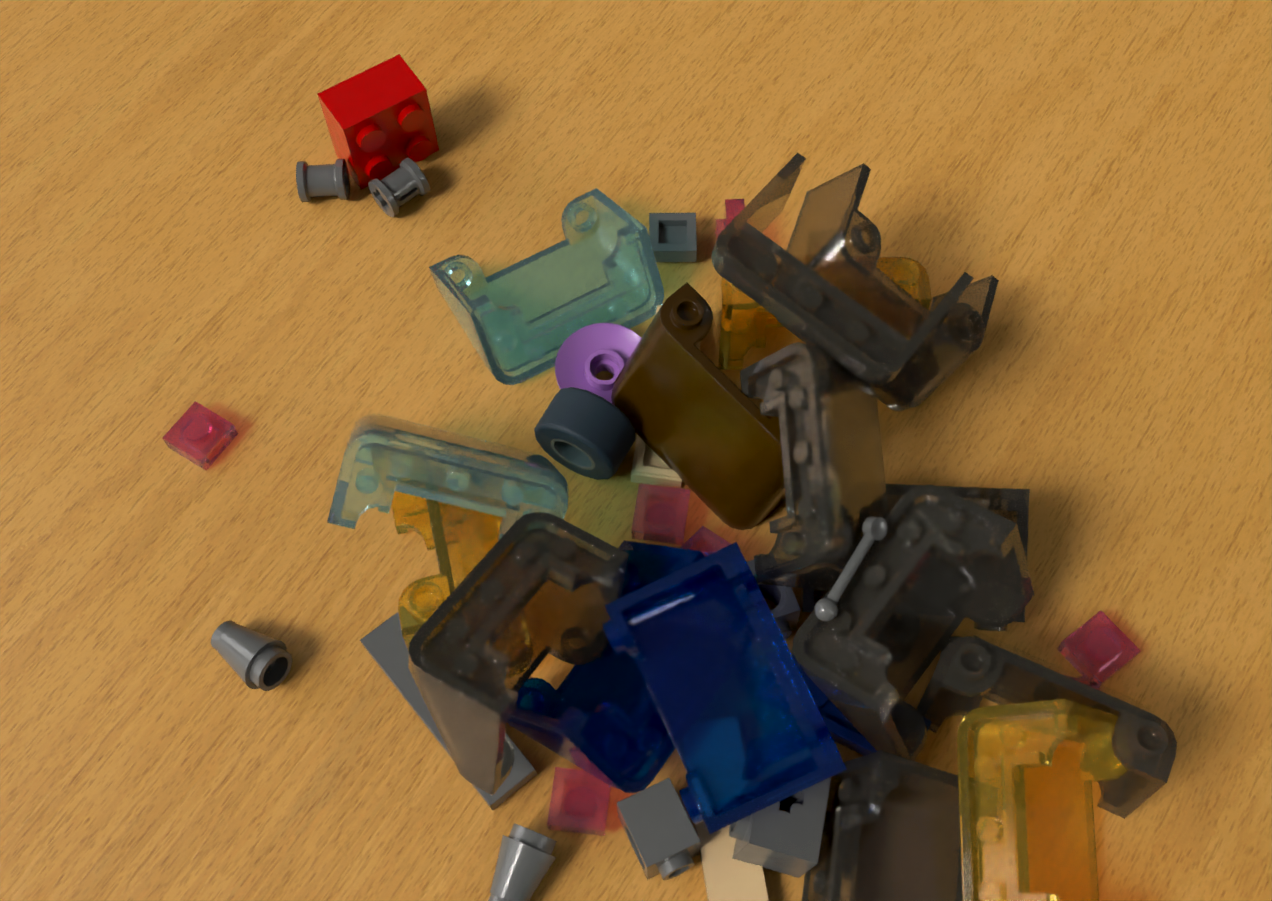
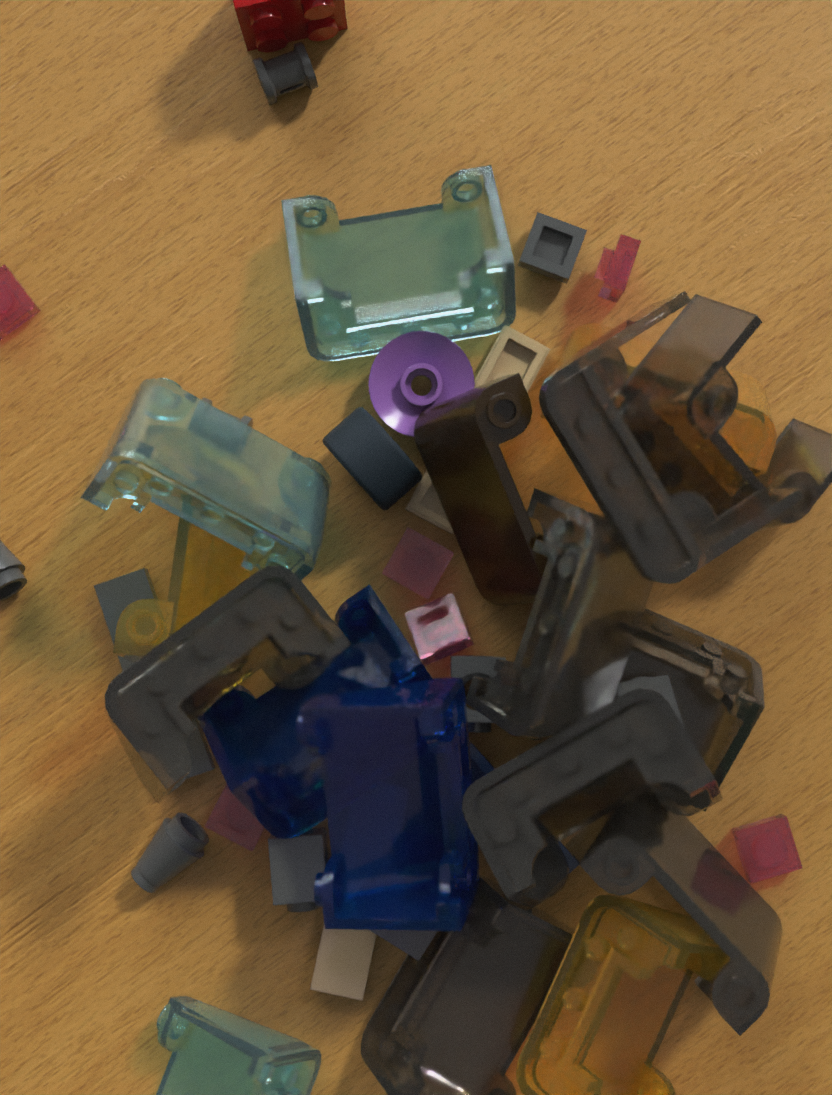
camera: 20 degrees right, 25 degrees up
(322, 180) = (206, 33): dark grey bush -> none
(873, 529) = (584, 719): dark grey hinge -> none

